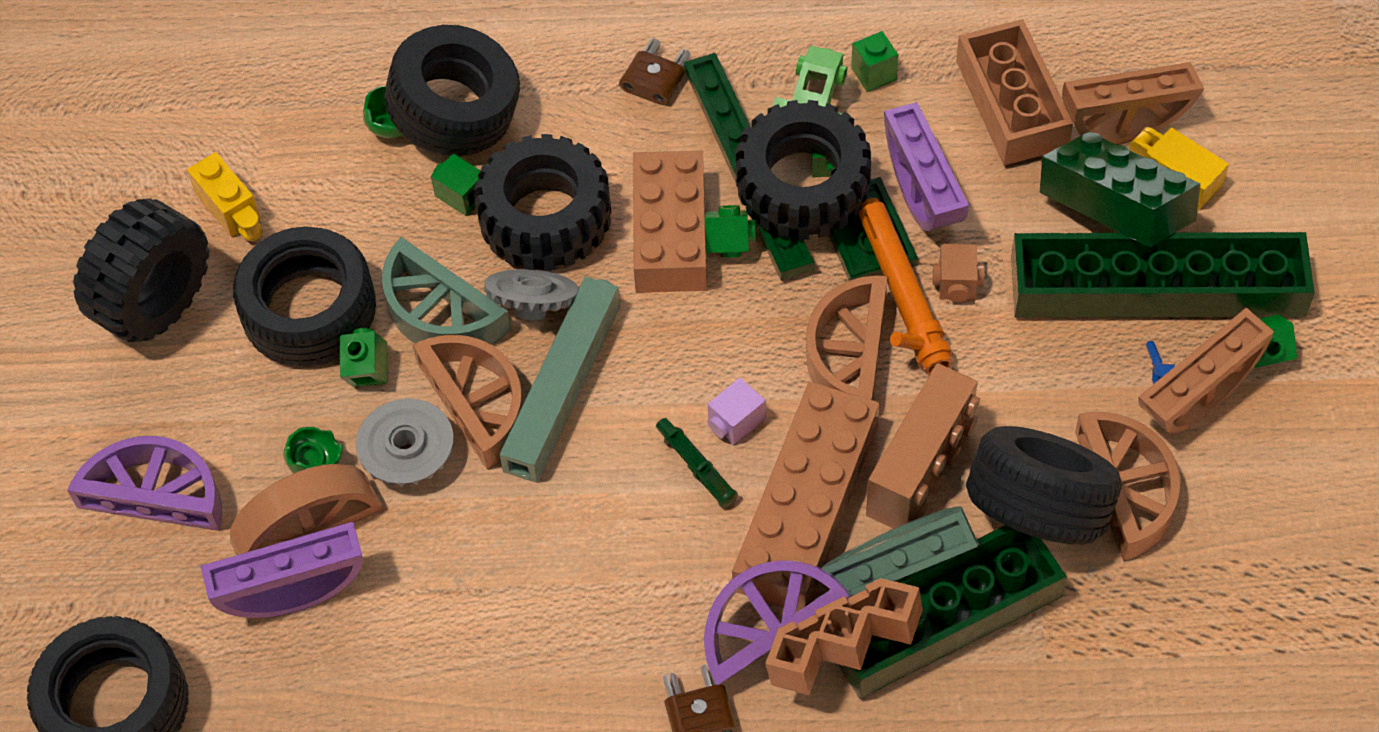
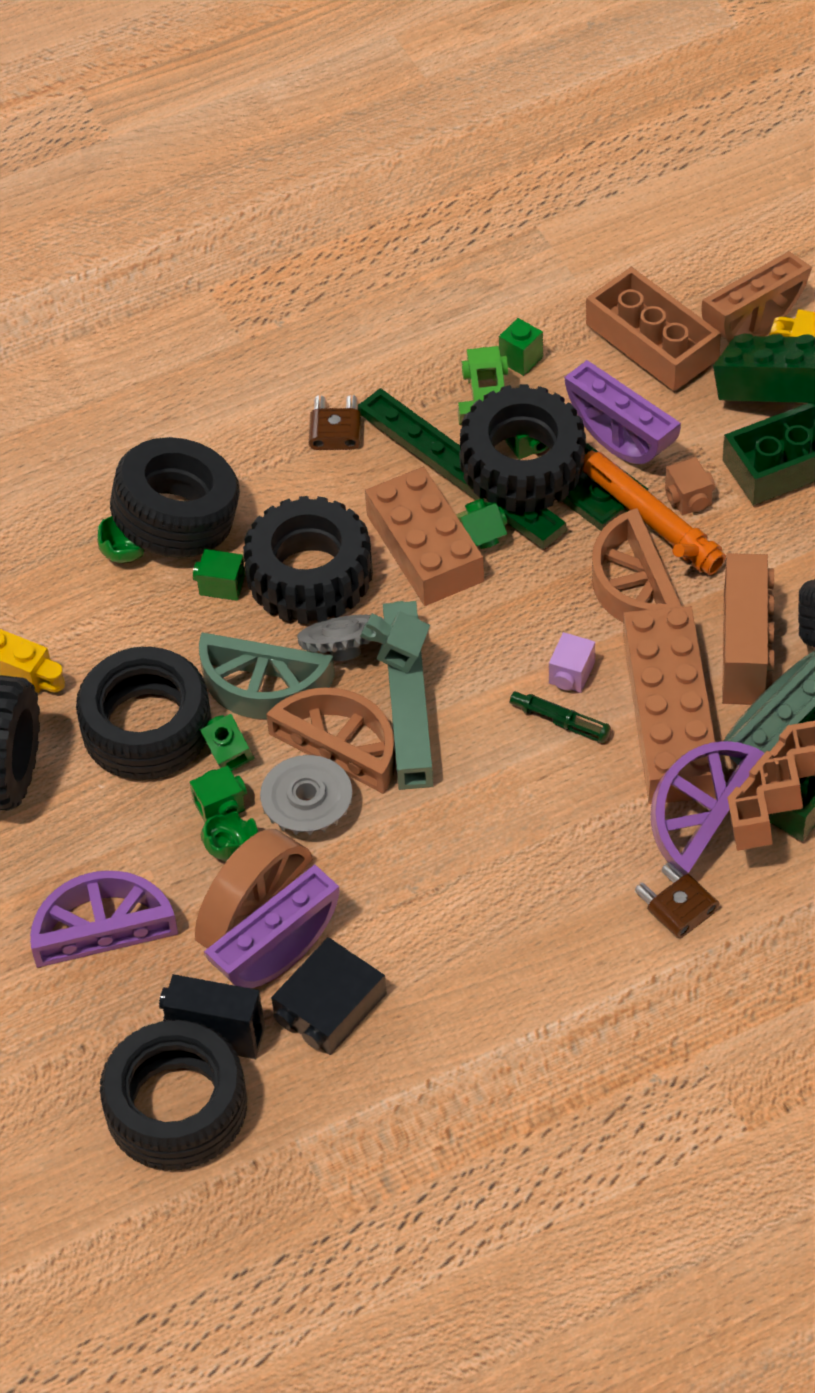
camera: 25 degrees left, 5 degrees down
(190, 632) = (223, 1007): none -> black brick
(309, 658) = (328, 996): none -> black brick
(329, 406) = (218, 793): none -> green brick
(570, 322) = (399, 640): none -> sand green brick

